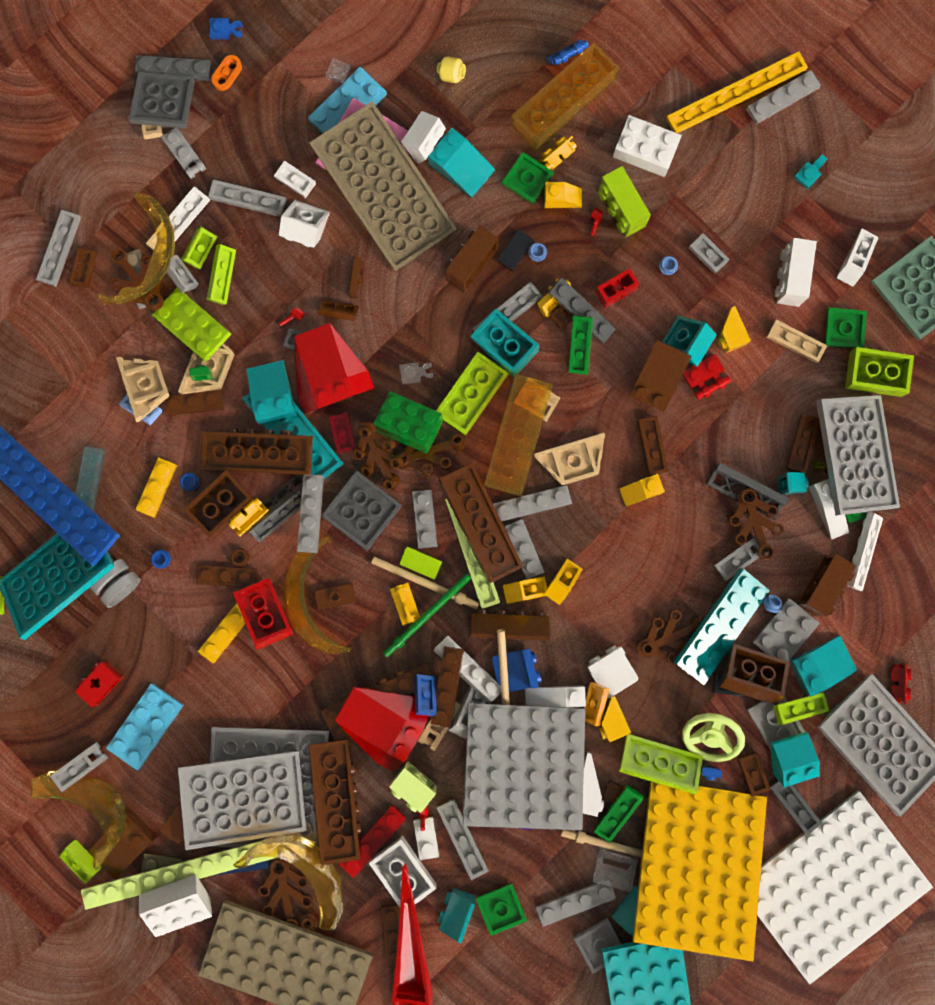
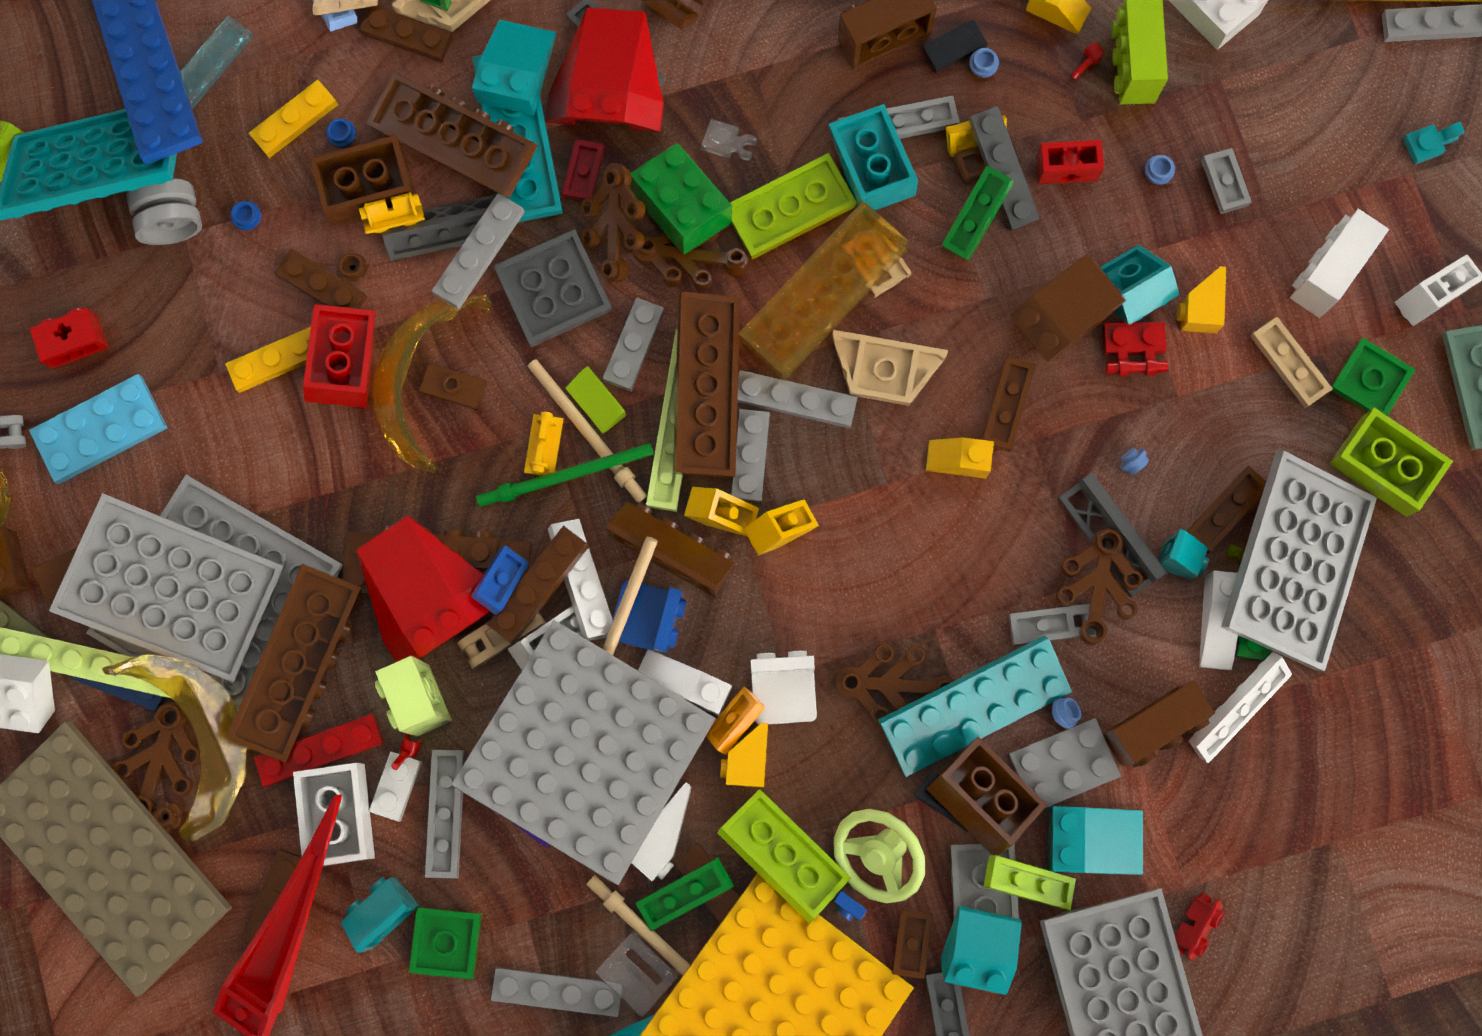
camera: 30 degrees right, 5 degrees down
(738, 442) = (1134, 461): none -> medium blue plate

